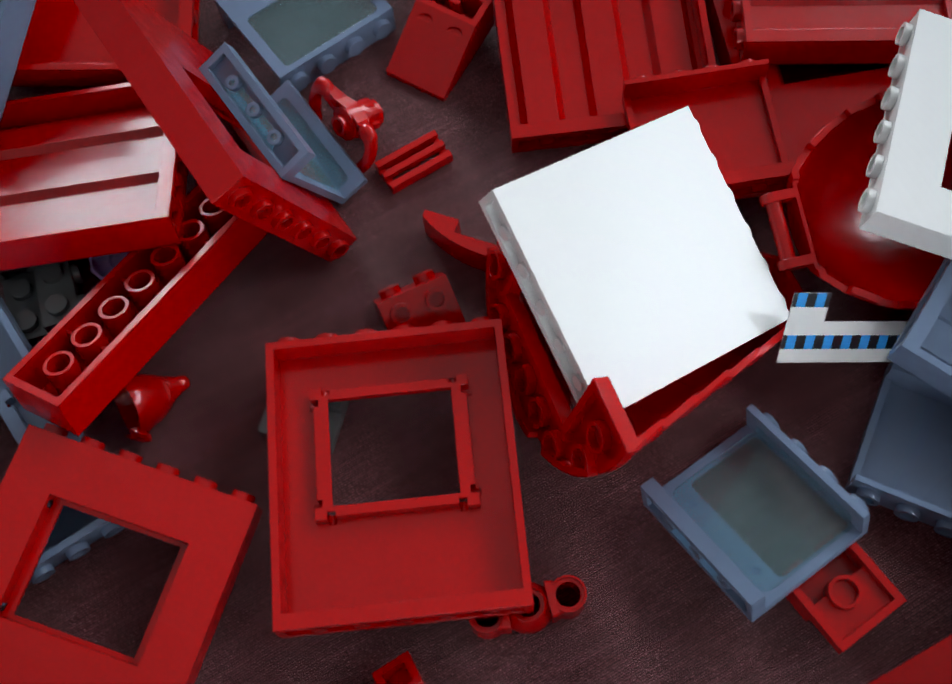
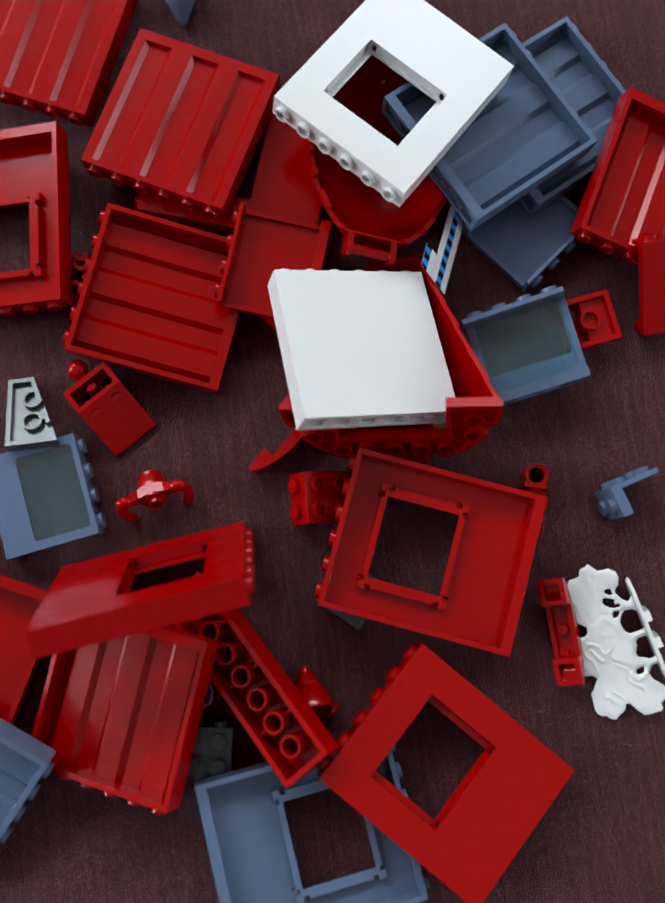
camera: 75 degrees left, 15 degrees up
(284, 128) = (155, 542): sand blue panel -> none
(409, 158) = (194, 441): red tile -> none

